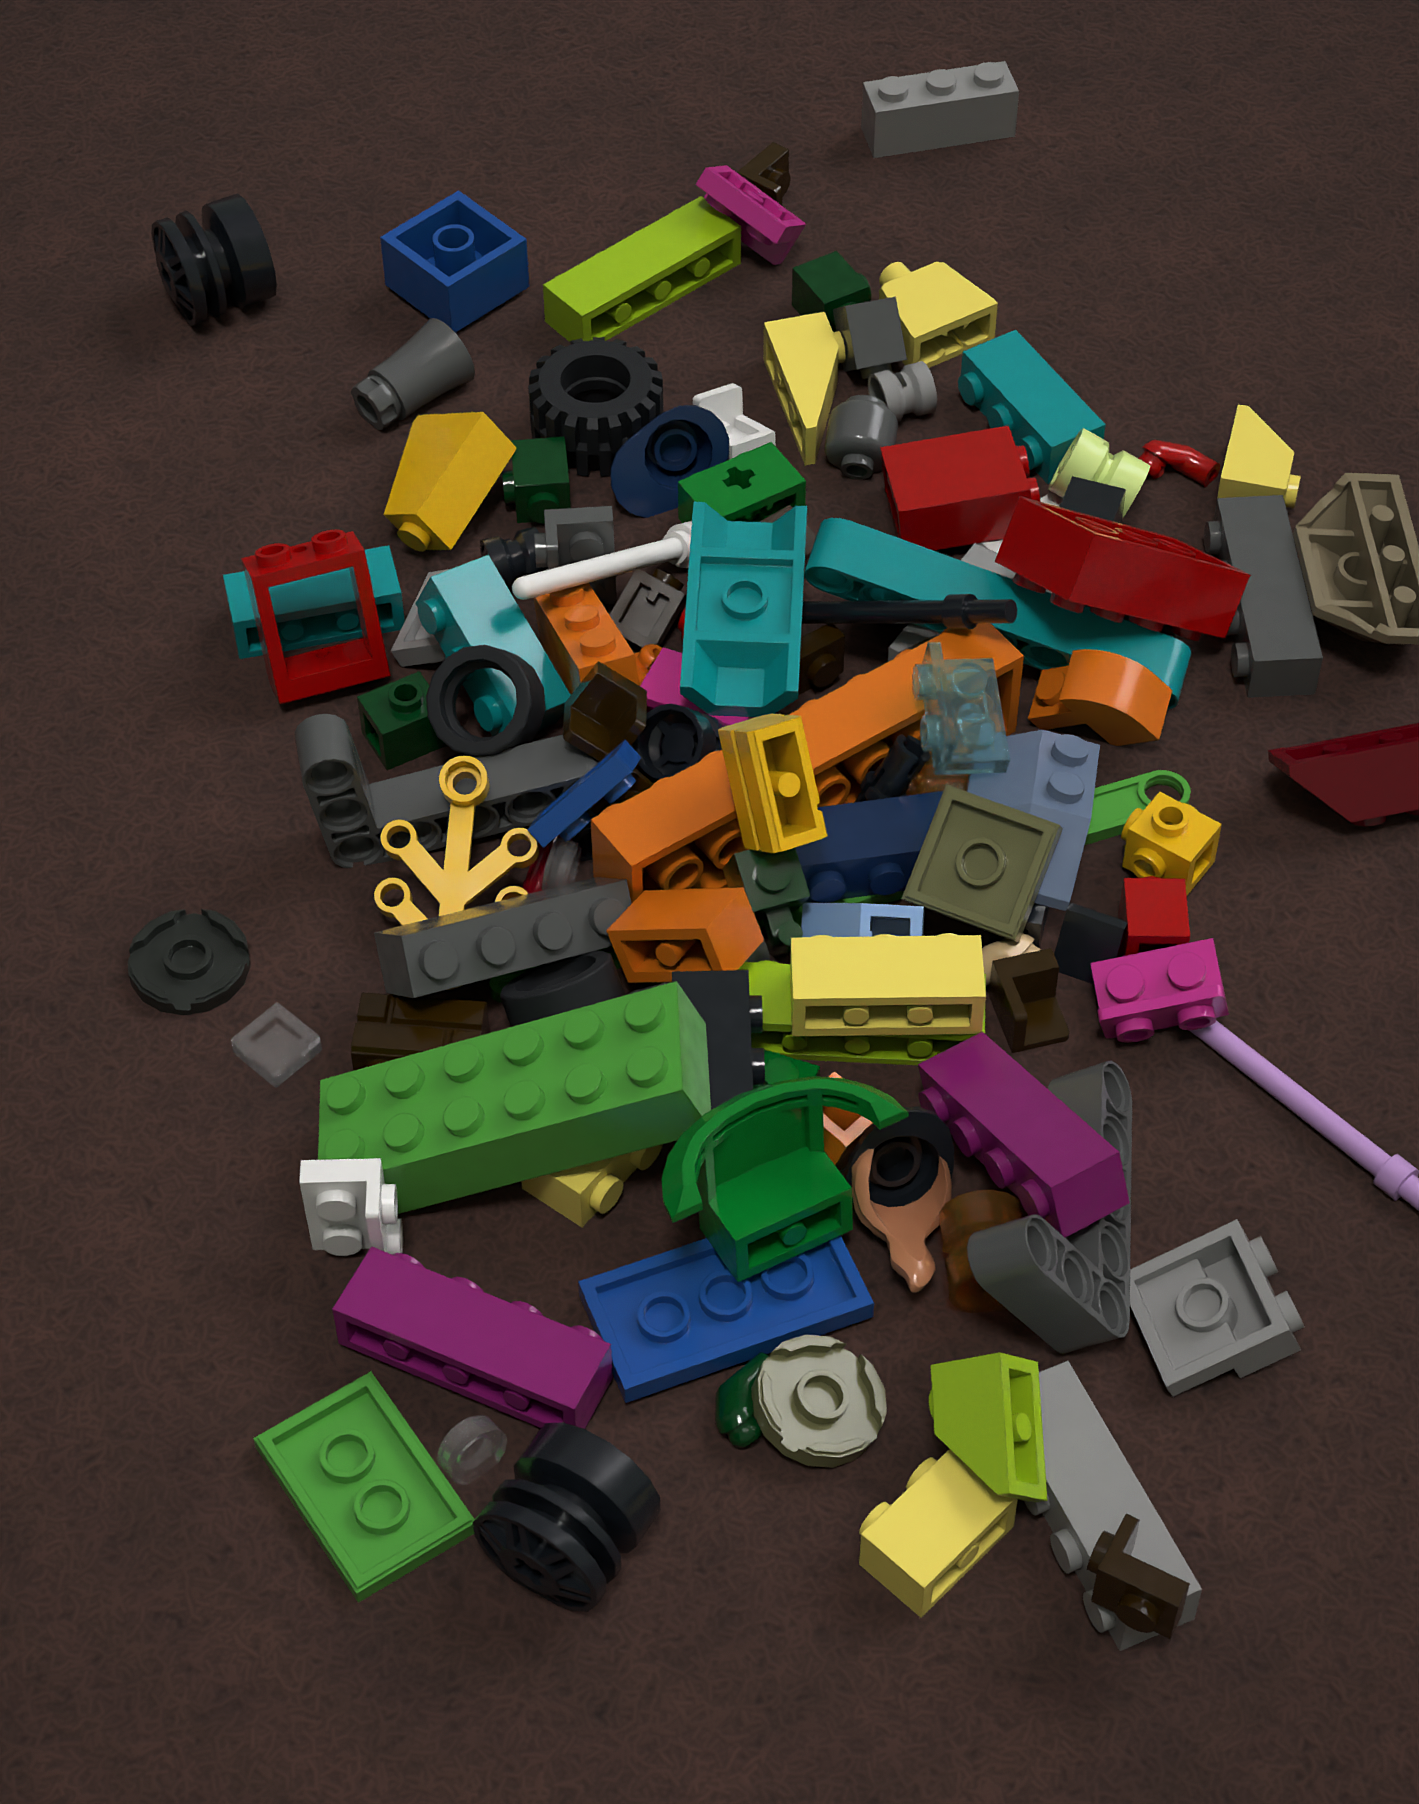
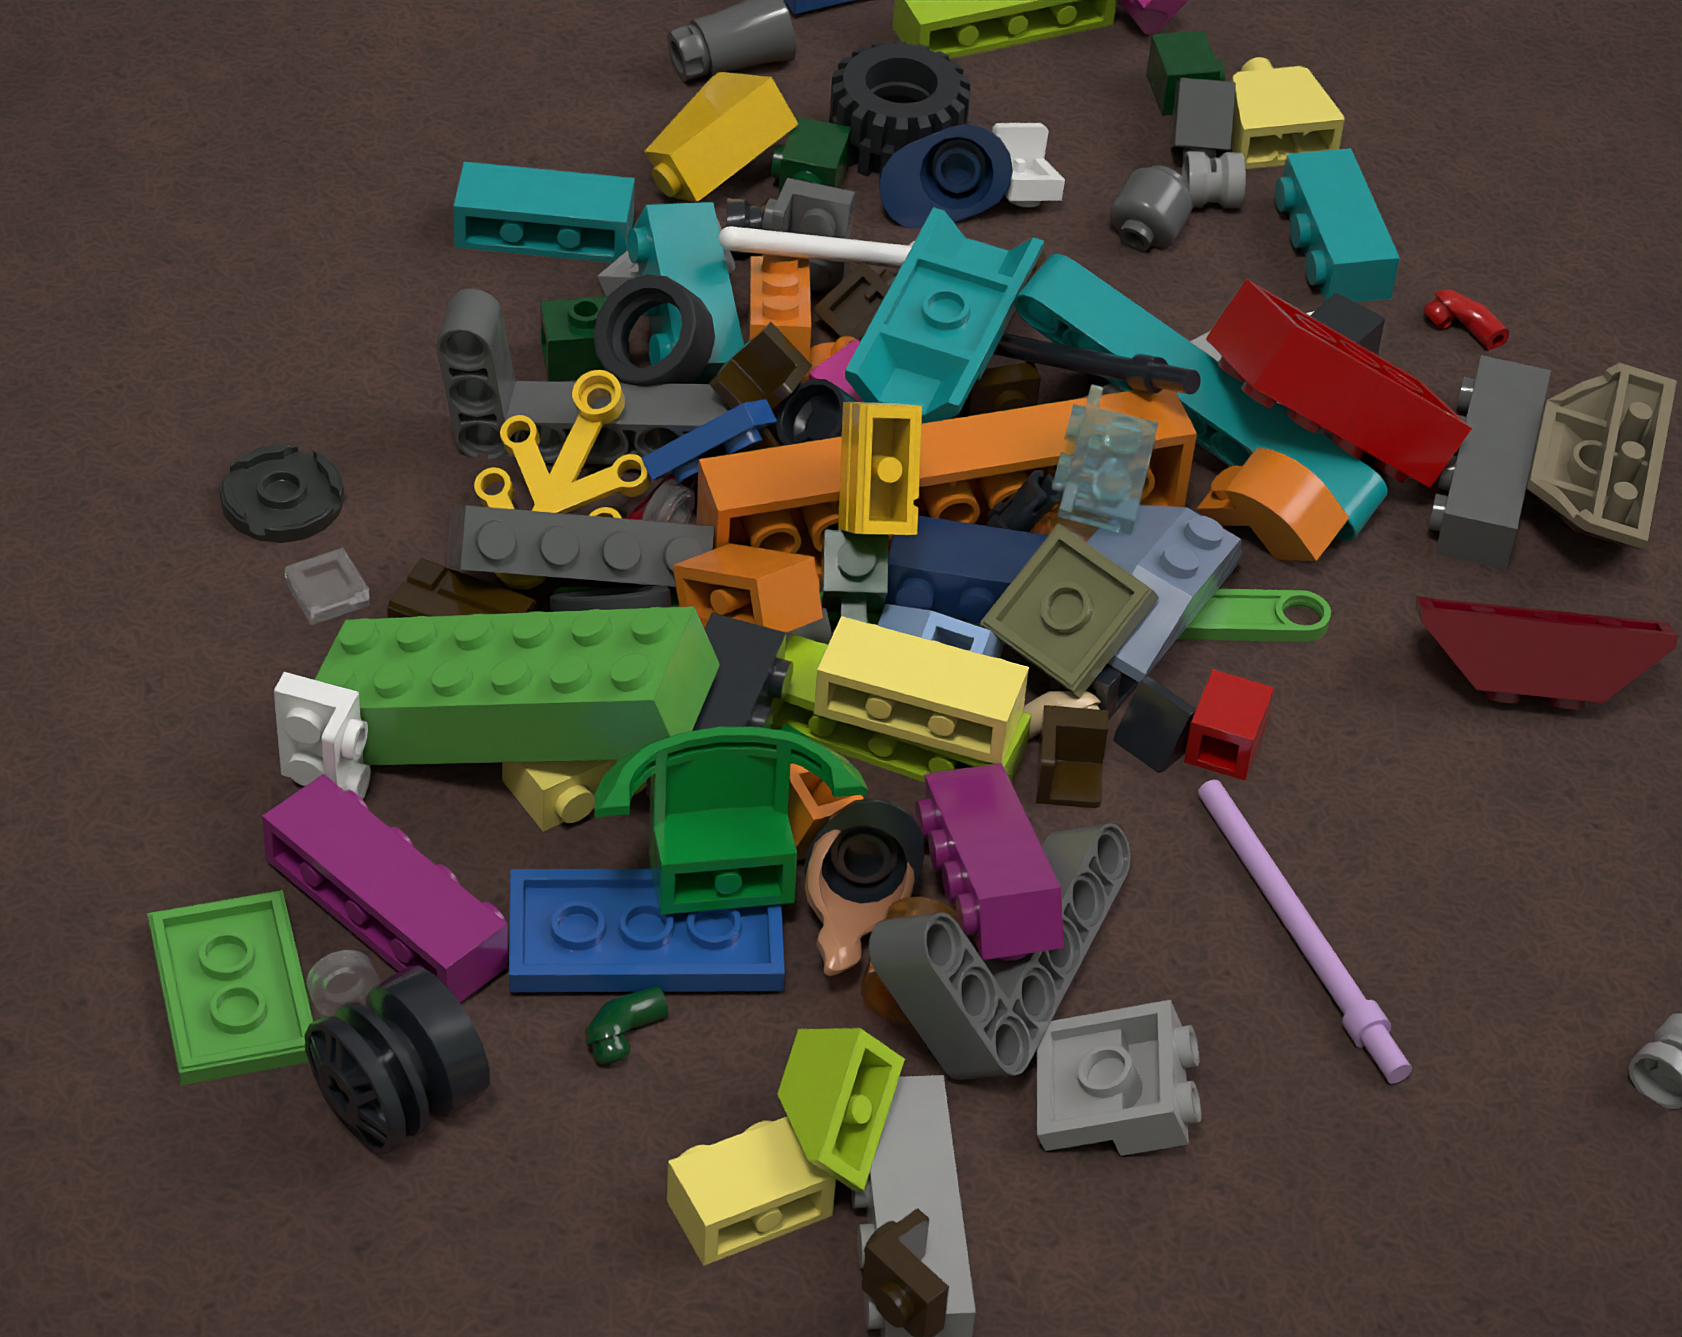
camera: 15 degrees right, 5 degrees down
(330, 666) = (528, 273): red window -> none
(744, 486) = (1011, 217): green brick -> none
(803, 367) = (1125, 136): light yellow slope -> none
(818, 1401) = (691, 1044): tile -> none
(956, 487) = (1204, 265): red brick -> none
(1090, 459) = (1368, 284): yellowish green wheel -> none
(1159, 991) = (1203, 784): dark pink bracket -> none
(1170, 841) = (1283, 653): yellow brick -> none
(1257, 461) = (1543, 336): light yellow slope -> none

